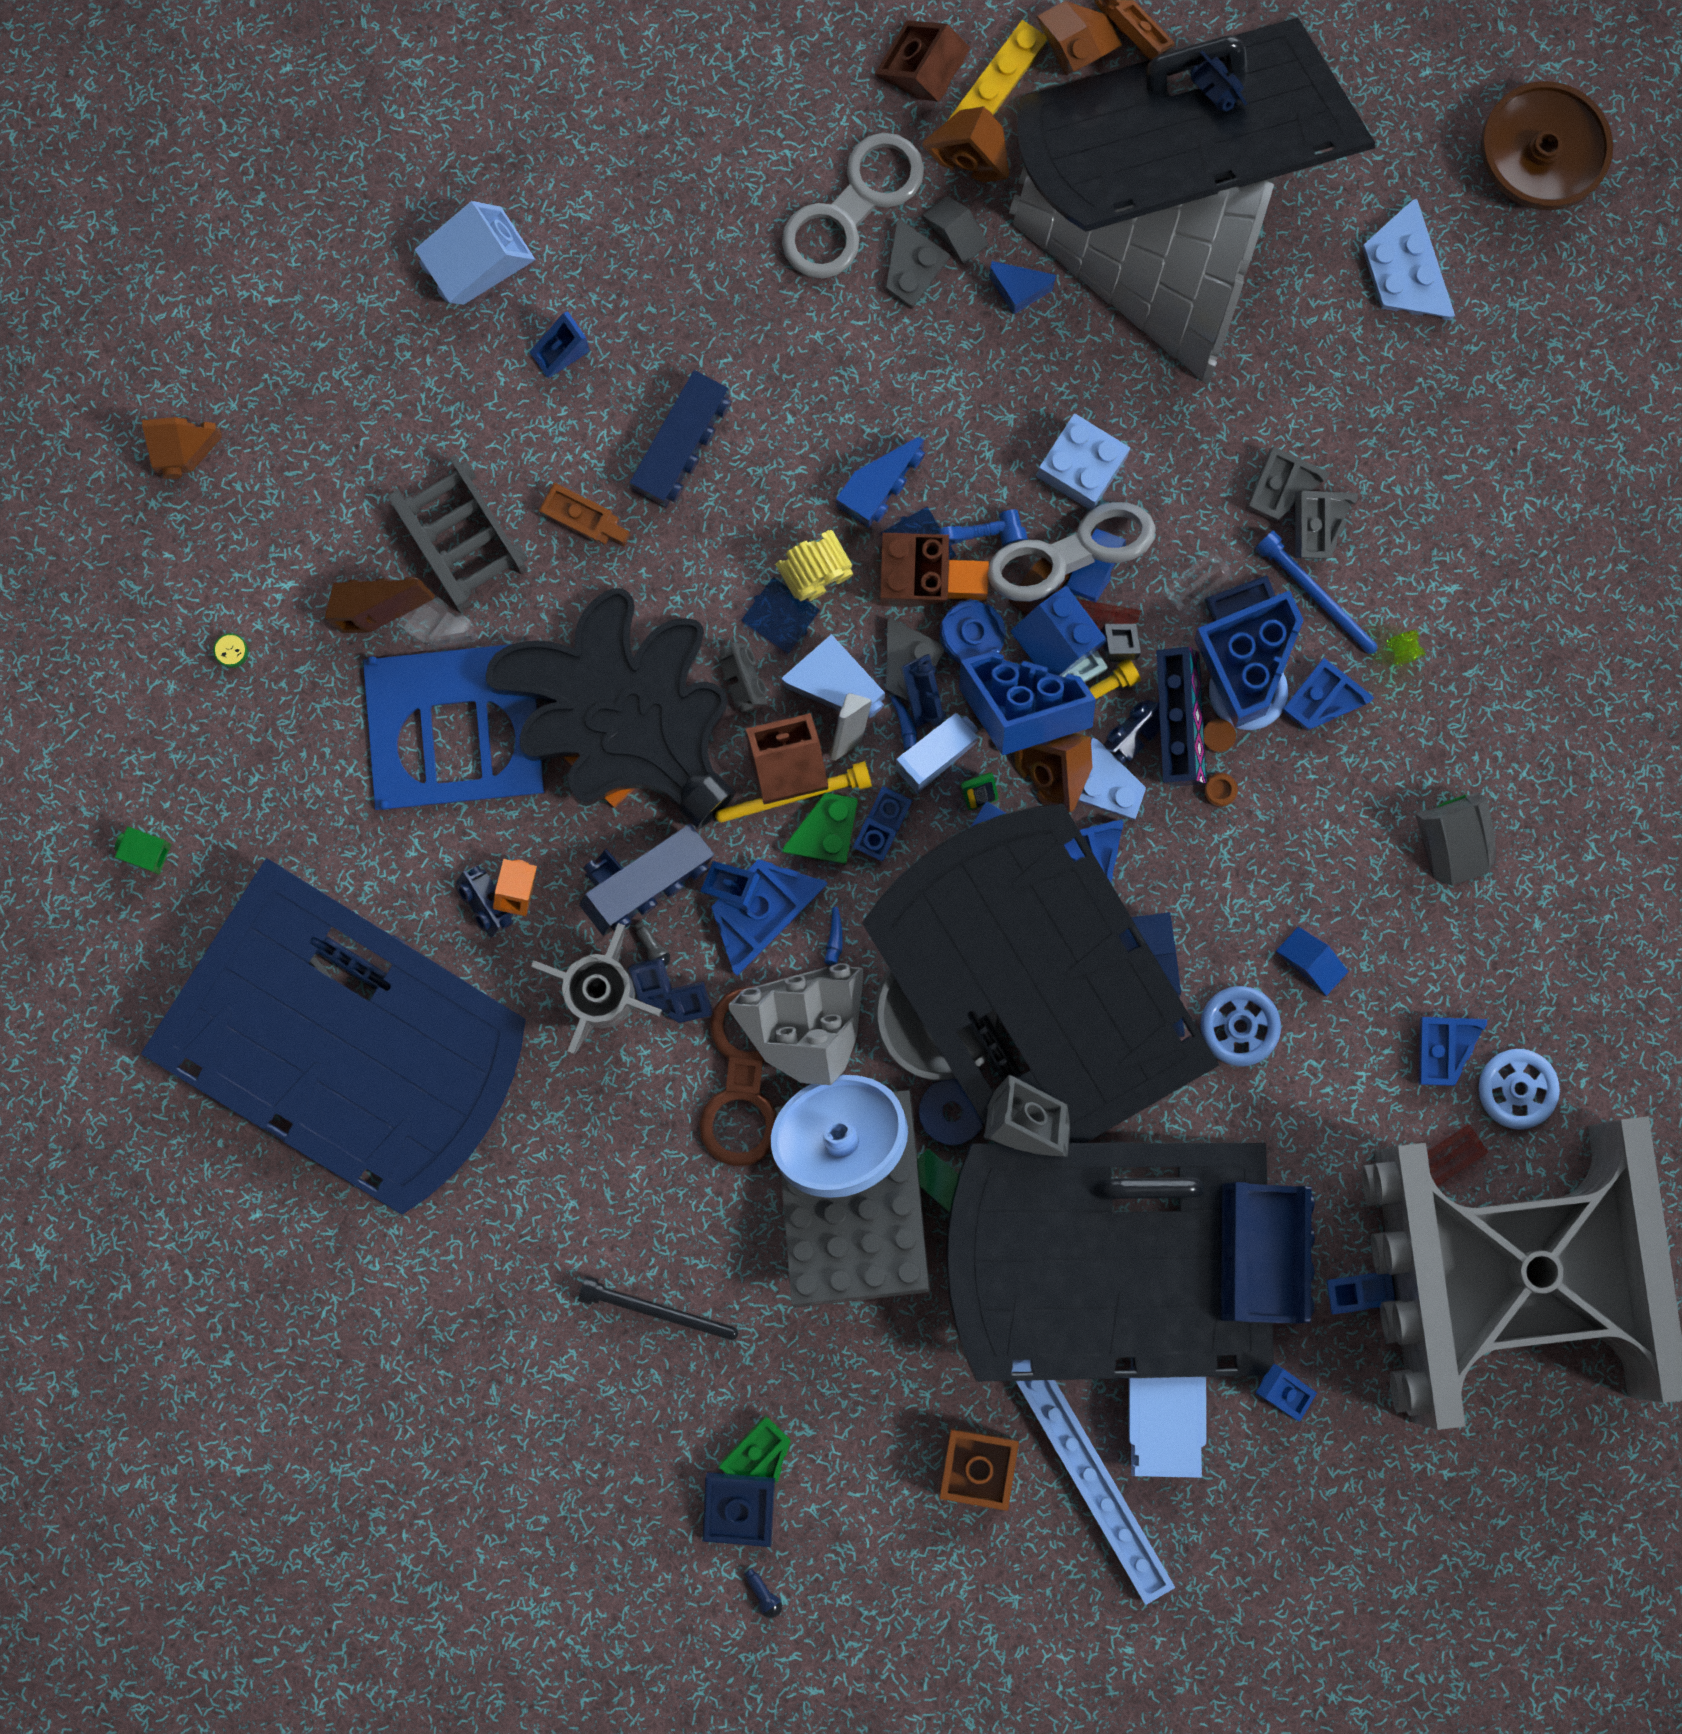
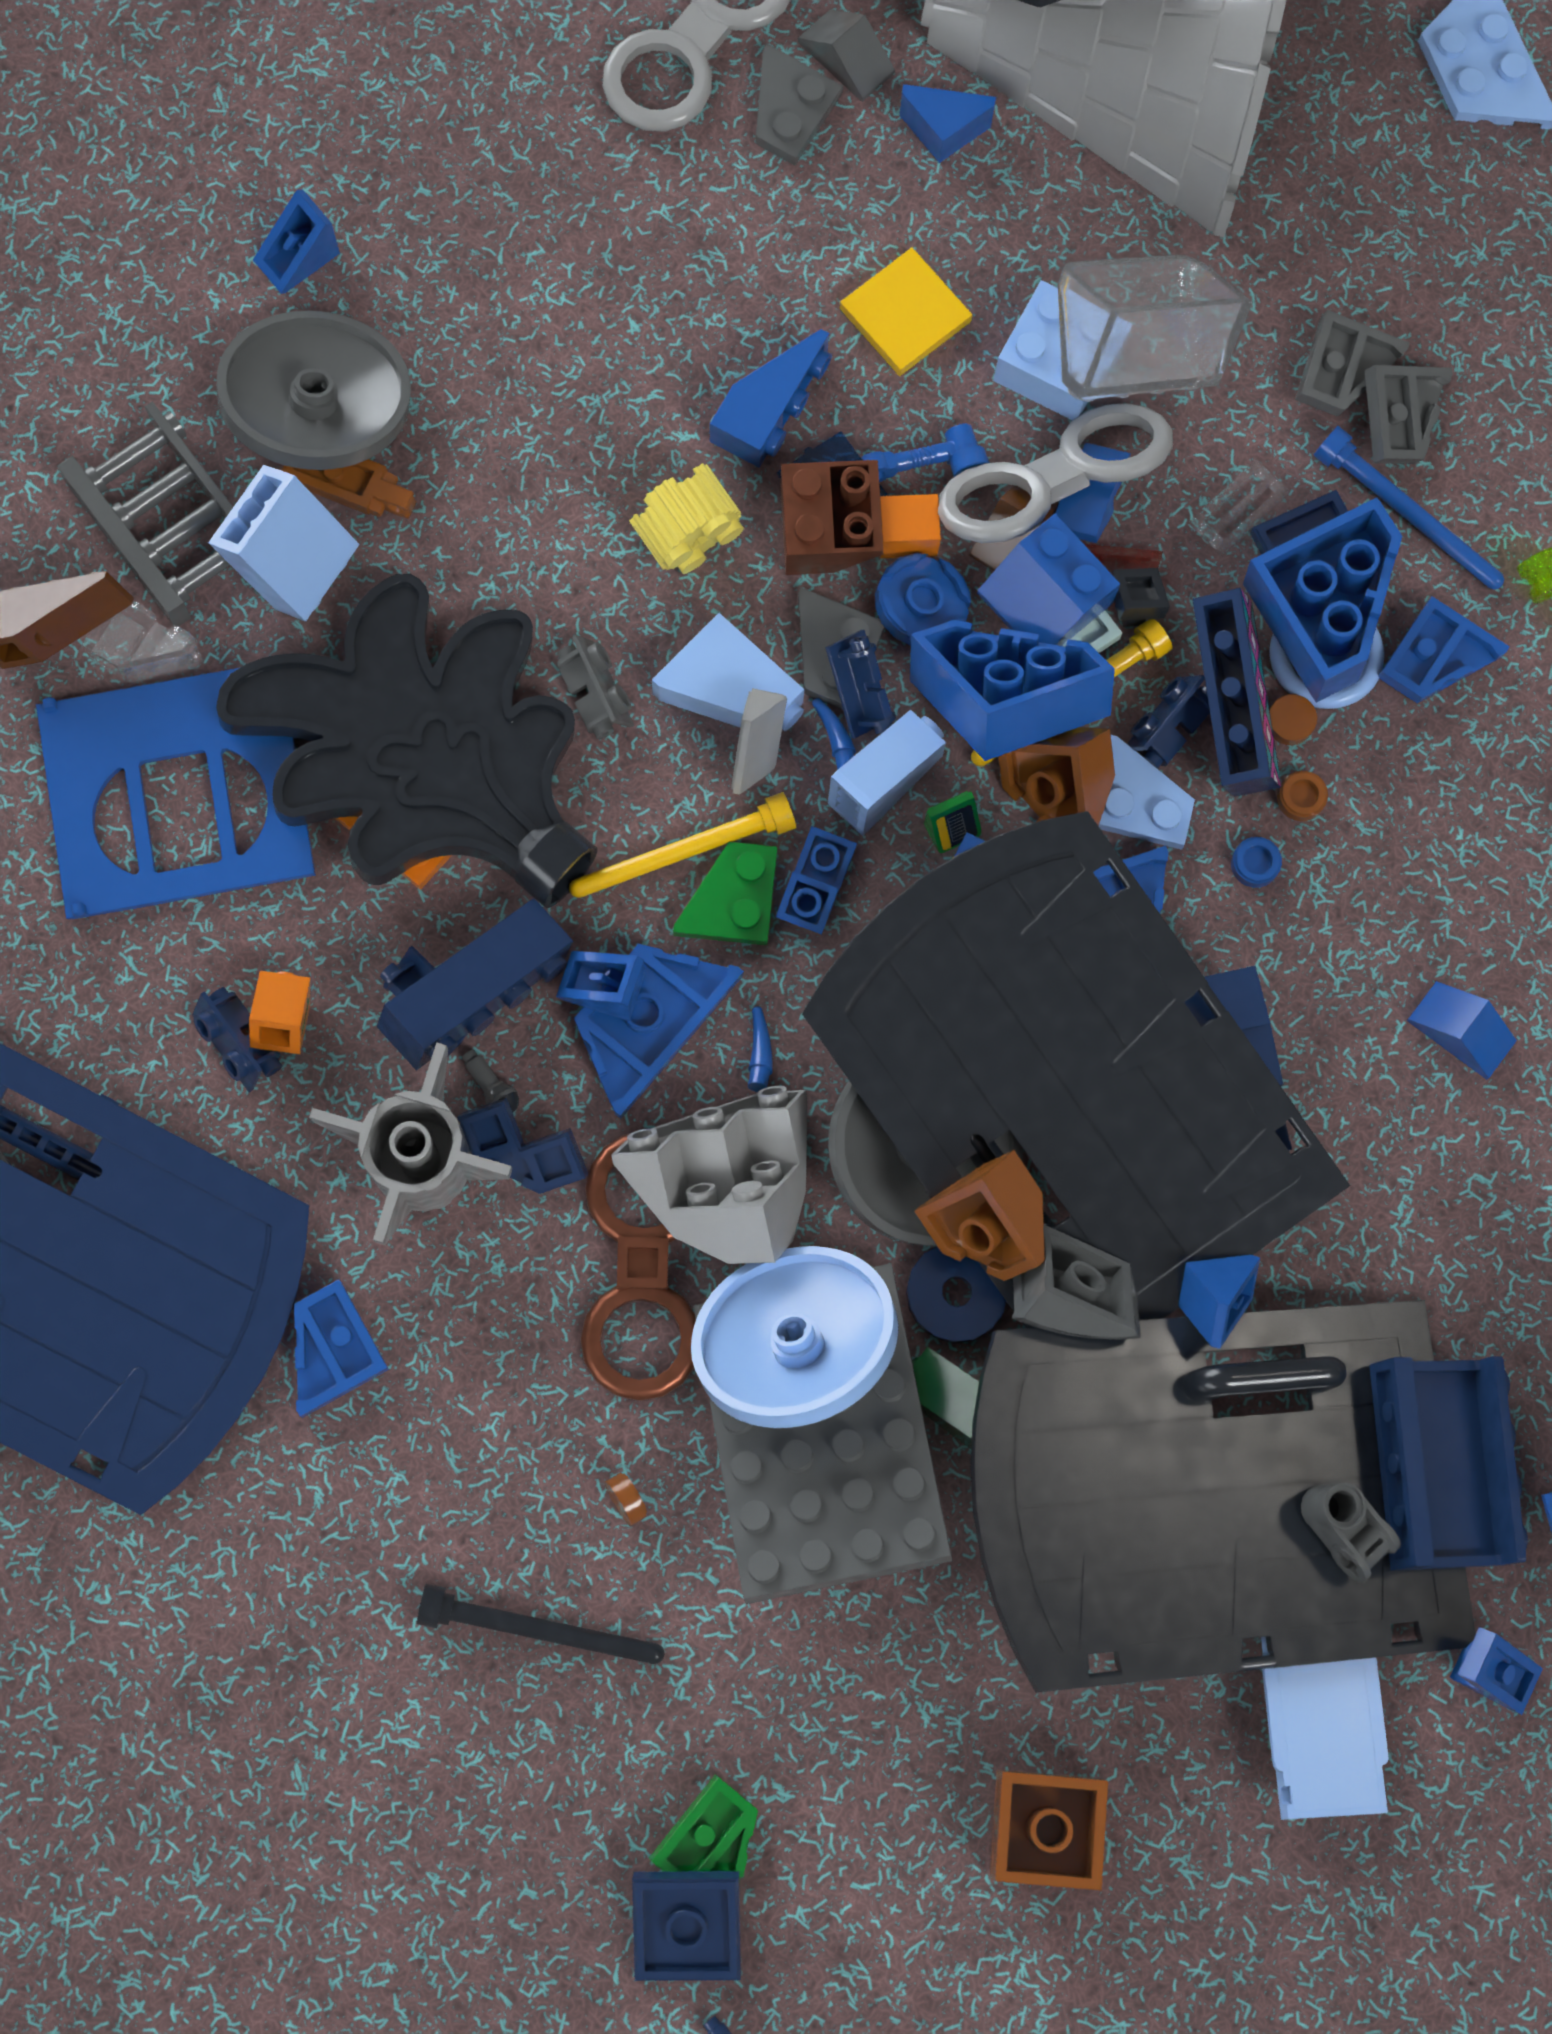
camera: 10 degrees left, 5 degrees down
(473, 252) = (161, 125): light blue slope -> none
(534, 1115) = (332, 1348): none -> blue wing
(538, 564) = (284, 542): none -> light blue brick
(565, 453) = (313, 390): none -> dark grey dish
(680, 439) = (478, 361): dark blue brick -> none
(721, 1230) = (626, 1498): none -> dark orange tile
(780, 615) = (642, 598): clear blue piece -> none
(787, 758) = (668, 794): copper slope -> none
(976, 1068) = (990, 1218): none -> dark orange slope
(980, 423) = (905, 311): none -> yellow tile
(1095, 1485) = (1227, 1840): light blue plate -> none
(1124, 1130) = (1218, 1294): none -> blue slope
(1142, 454) = (1145, 325): none -> clear windscreen
(1184, 834) = (1256, 862): none -> blue tile
(1199, 1296) = (1356, 1534): none -> dark grey piece
(1267, 1016) = (1406, 1115): medium blue plate -> none

